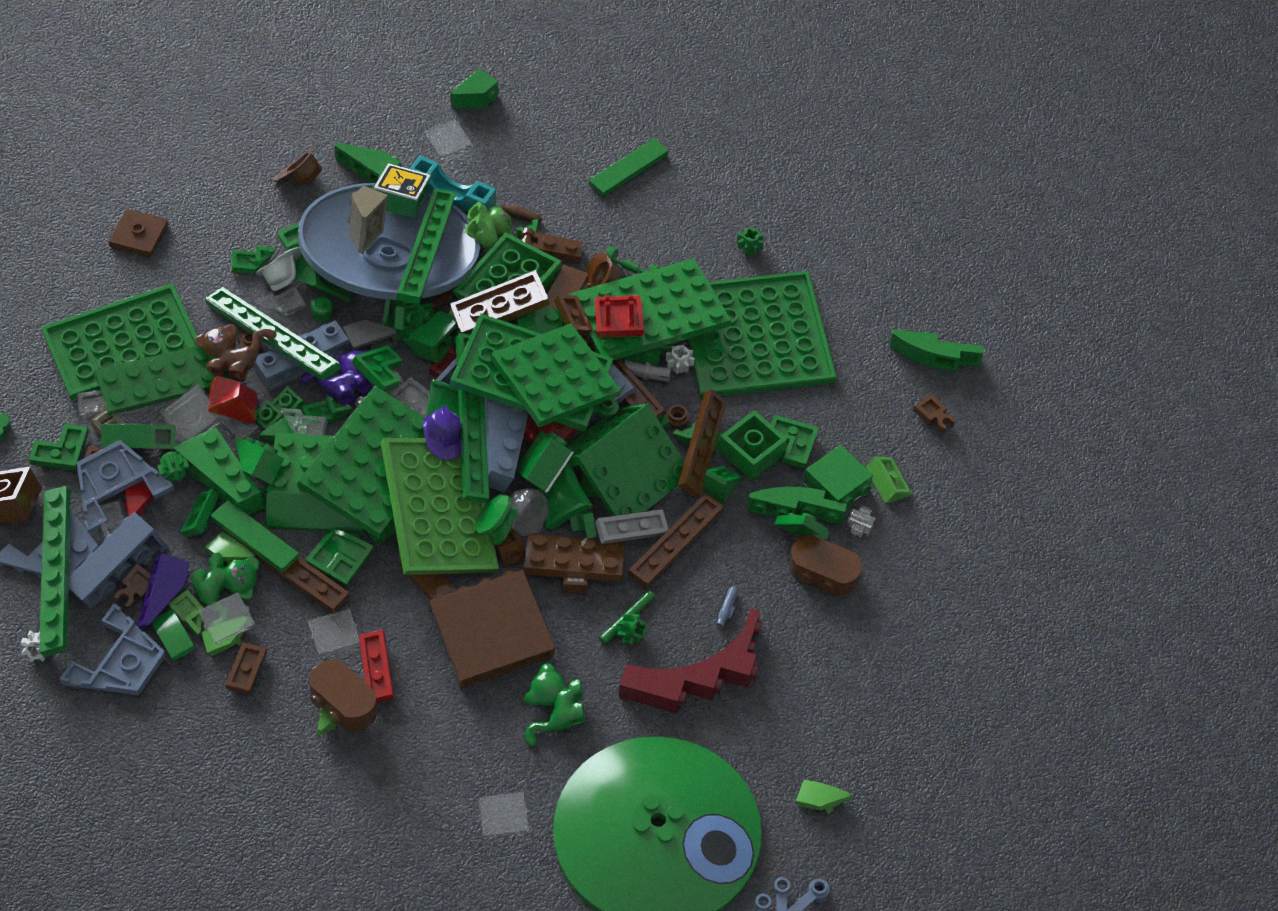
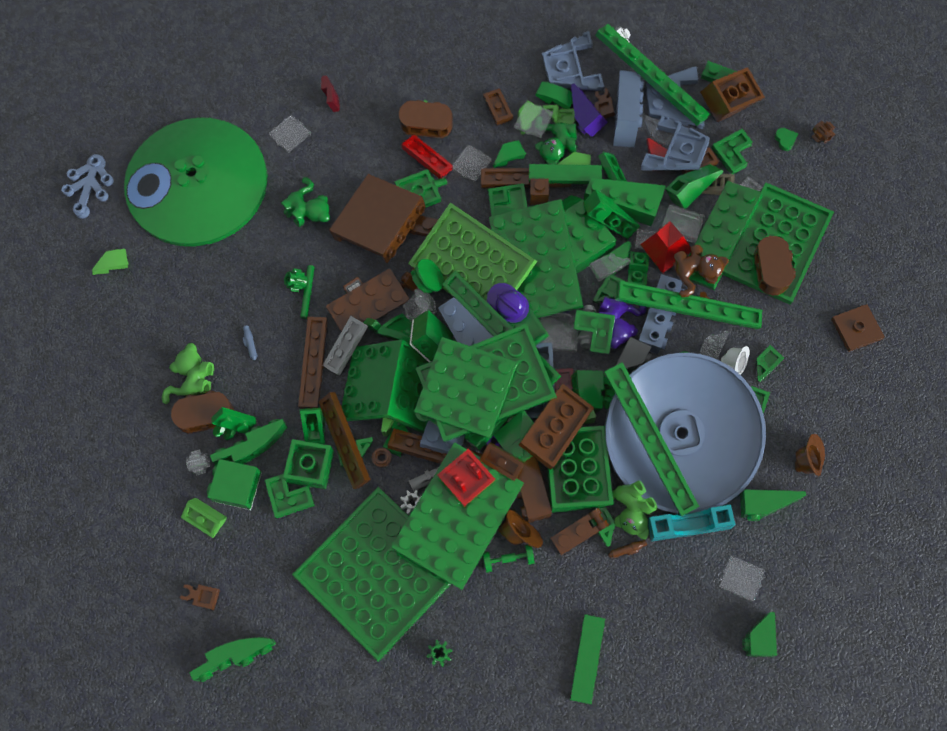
camera: 150 degrees right, 15 degrees up
(156, 313) = (774, 265): none -> reddish brown brick
(173, 466) = (652, 173): green gear -> none
(286, 608) = (509, 152): none -> green slope
(299, 538) = (539, 191): none -> reddish brown brick
(366, 217) = (706, 414): dark tan slope -> none
(404, 188) = (718, 481): piece -> none
(415, 826) = (329, 91): none -> dark red slope
(416, 637) = (423, 185): none -> green plate
(670, 687) = (245, 261): dark red arch -> none
(807, 619) = (189, 364): none -> bright green animal

